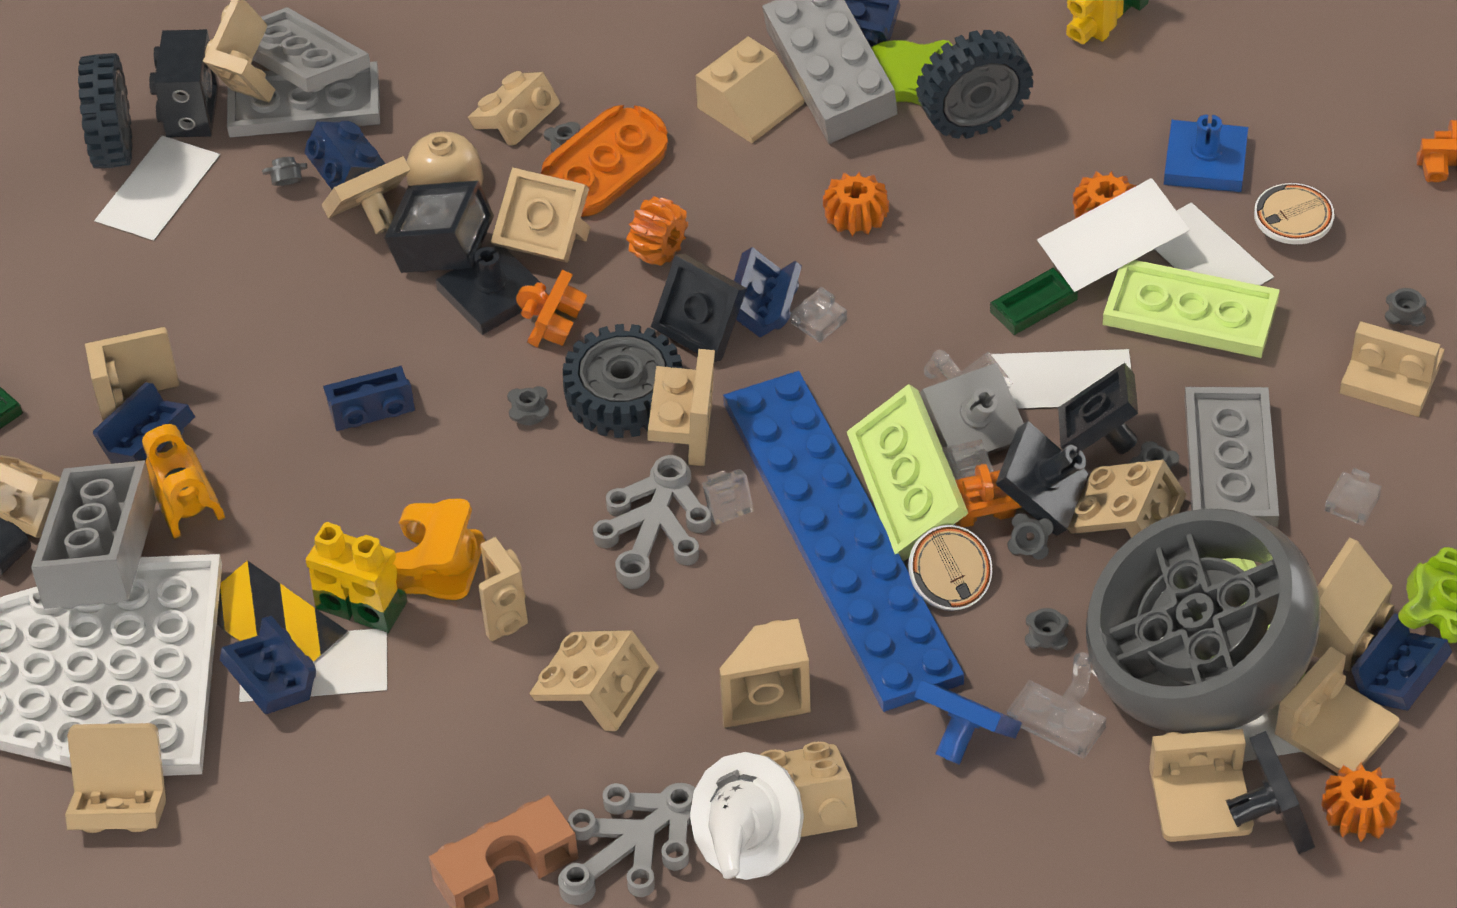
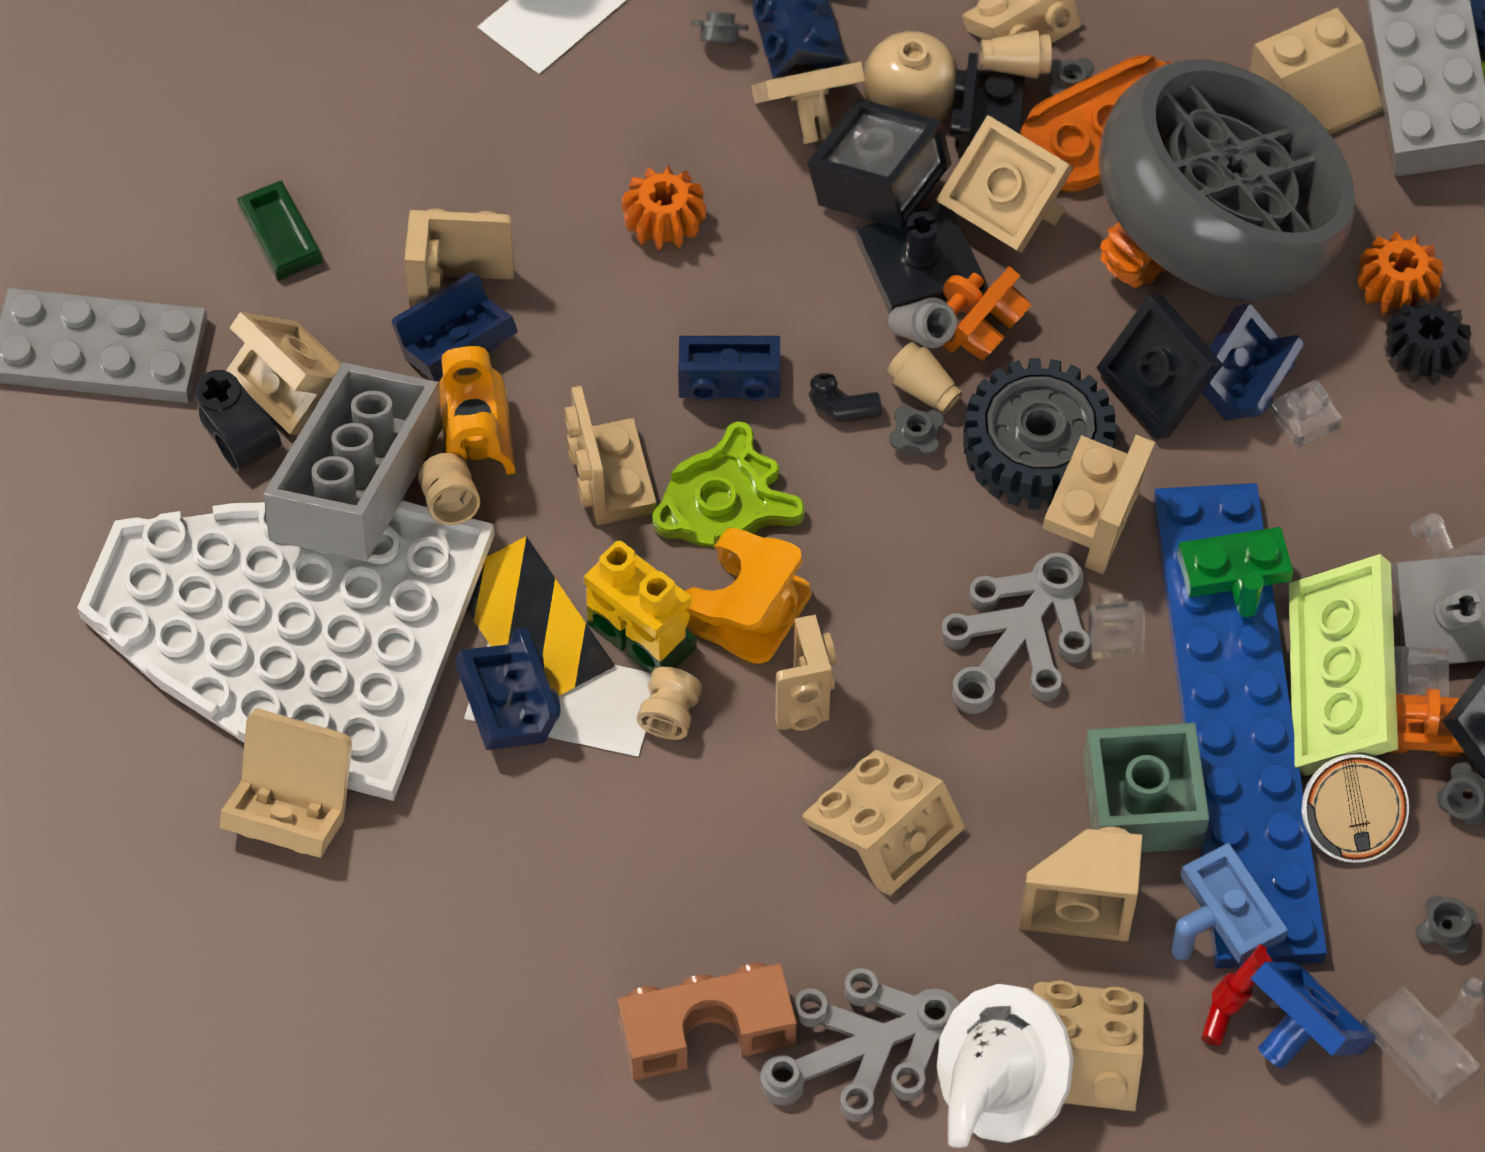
camera: 15 degrees right, 10 degrees up
(176, 535) = (449, 489): none -> tan wheel
(282, 302) = (663, 207): none -> orange gear
(297, 488) = (609, 465): none -> tan bracket
(391, 483) = (723, 492): none -> lime tile
(399, 643) = (669, 702): none -> tan wheel
(464, 404) = (838, 404): none -> black arm
(499, 164) = (983, 95): none -> black bracket
(511, 325) = (924, 322): none -> light grey cone
(520, 128) = (1018, 54): none -> tan cone
(521, 366) = (923, 377): none -> tan cone
(706, 165) = (1226, 180): none -> dark grey wheel
(788, 586) = (1148, 784): none -> sand green brick
(802, 425) = (1236, 564): none -> green plate
(878, 655) = (1230, 904): none -> medium blue plate
(892, 242) = (1427, 341): none -> black gear
(903, 722) = (1231, 996): none -> red piece

